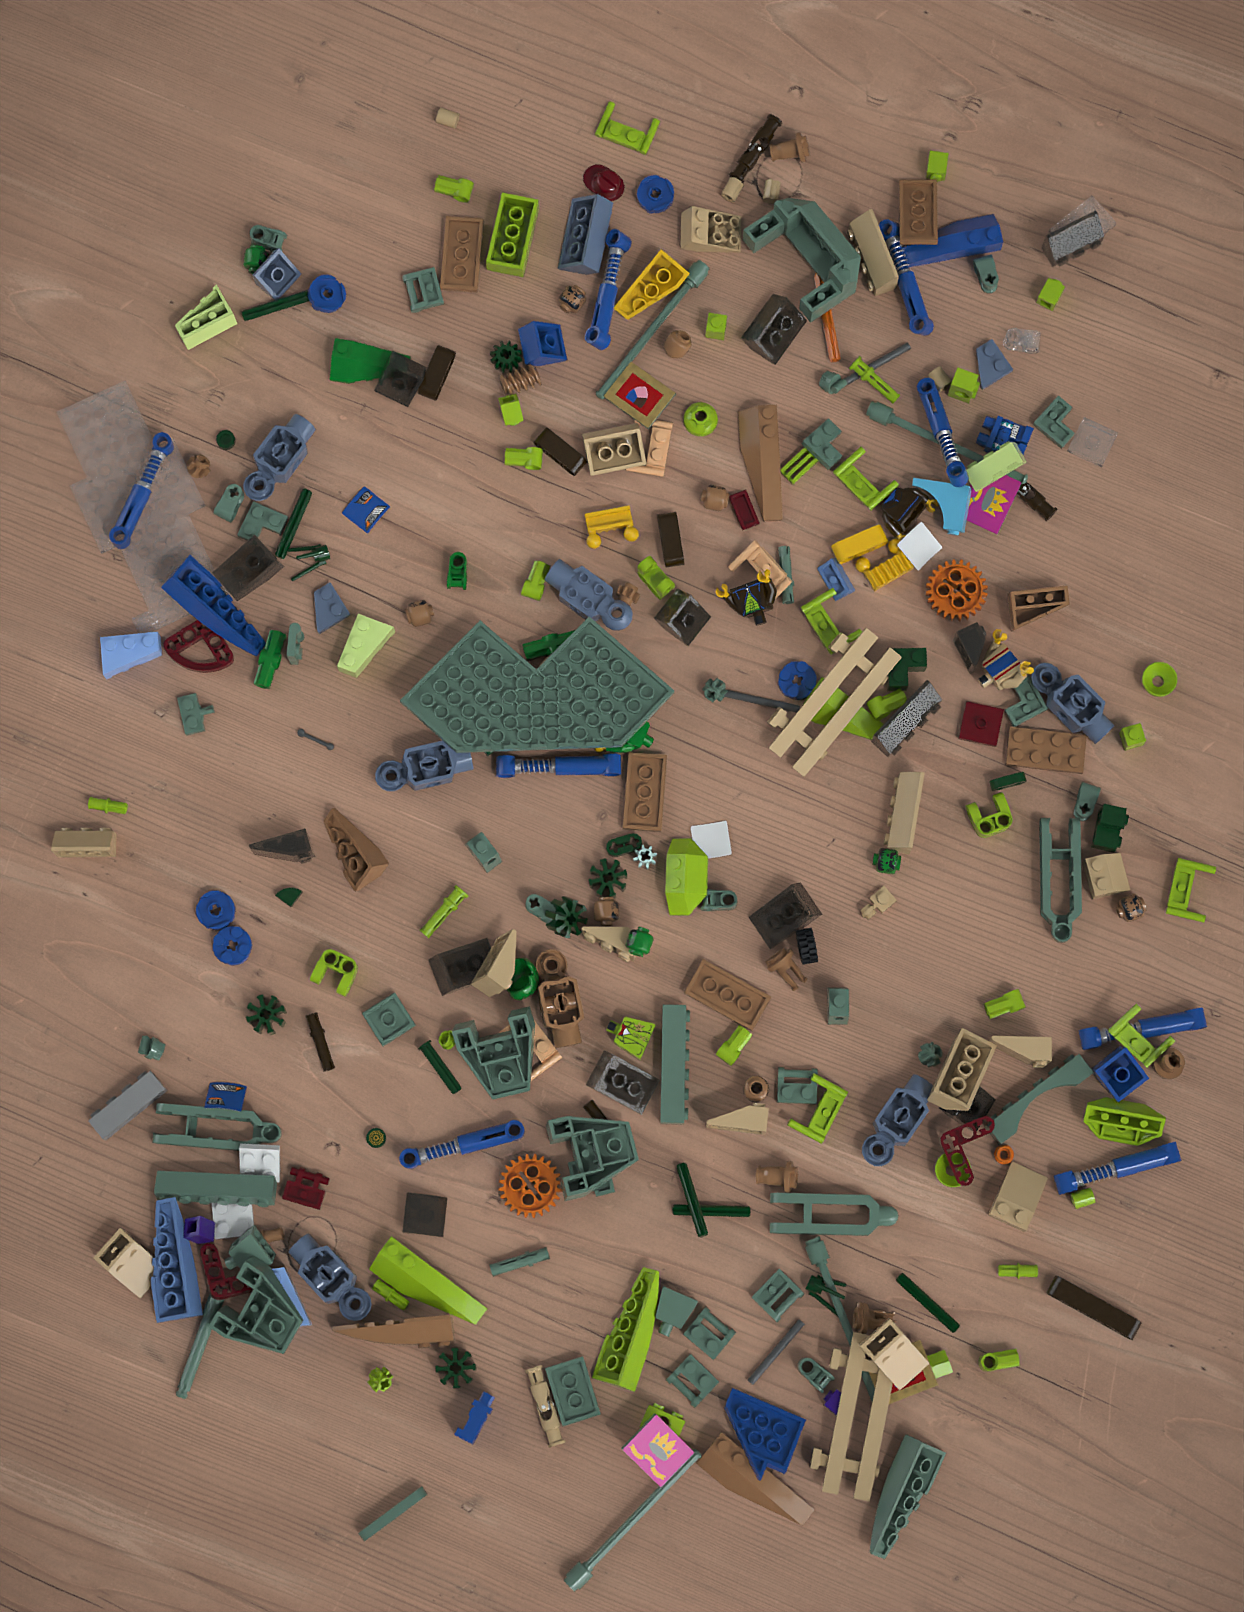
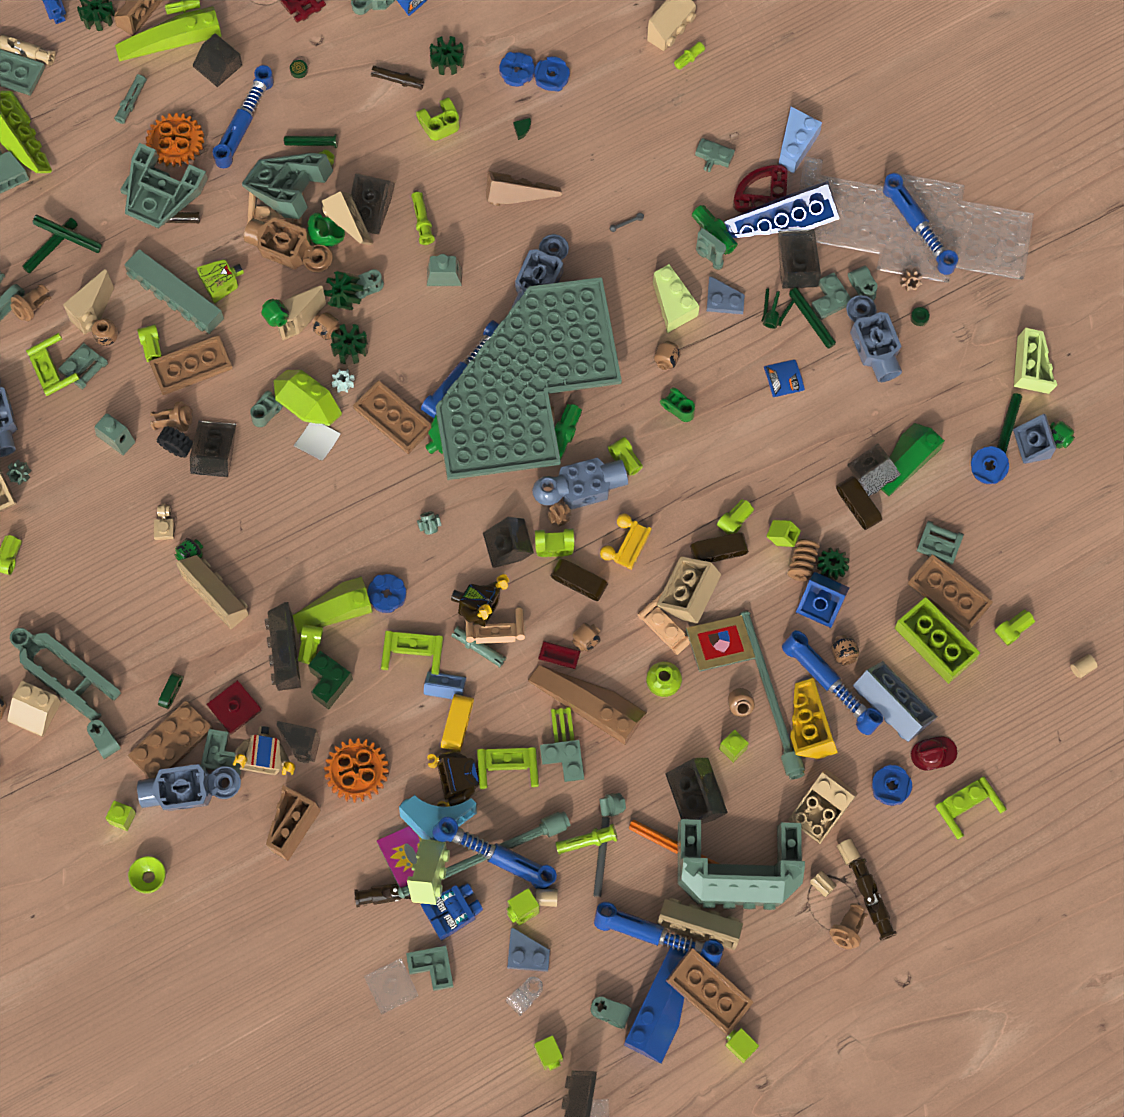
camera: 125 degrees right, 10 degrees down
(271, 238) = (1070, 457): sand green piece -> none
(289, 847) = (556, 141): clear smoke slope -> none
(388, 1019) = (374, 130): sand green plate -> none
(622, 841) = (369, 377): dark green beam -> none
(622, 1082) = (192, 248): clear smoke slope -> none
(762, 701) = (392, 555): dark grey bar -> none
(852, 656) = (347, 557): tan fence -> none
(886, 571) = (417, 730): yellow gear -> none
(919, 545) = (417, 769): white sticker -> none
(992, 820) = (151, 653): lime piece -> none
(1108, 826) = (65, 738): dark green brick -> none

